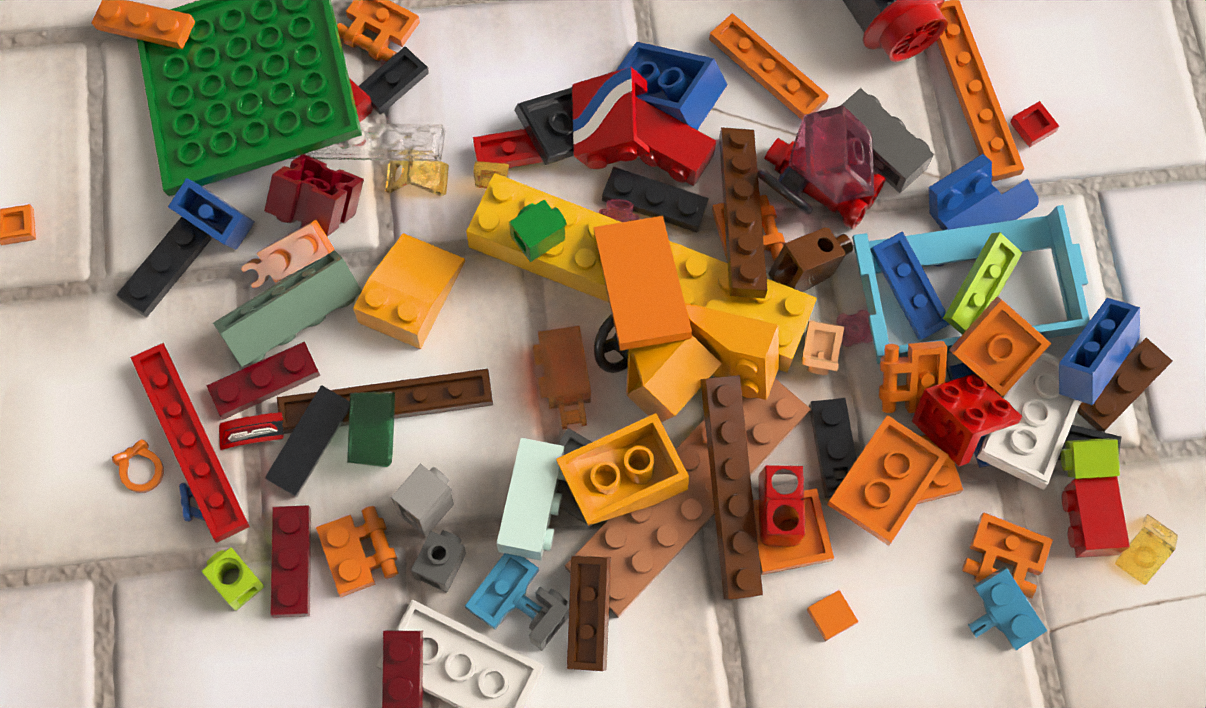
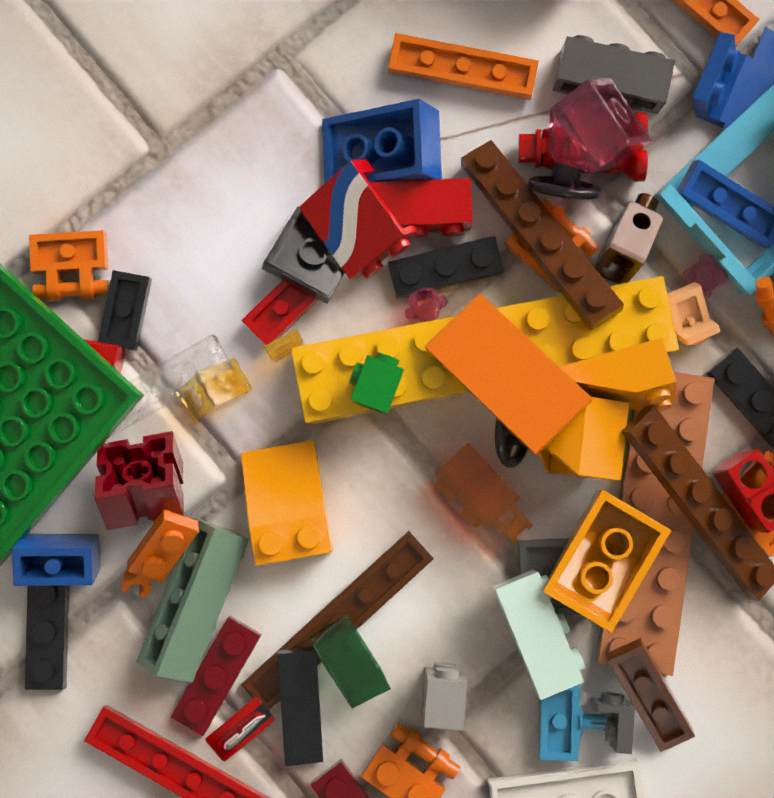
camera: 35 degrees left, 15 degrees up
(439, 560) = (490, 734): dark grey brick -> none

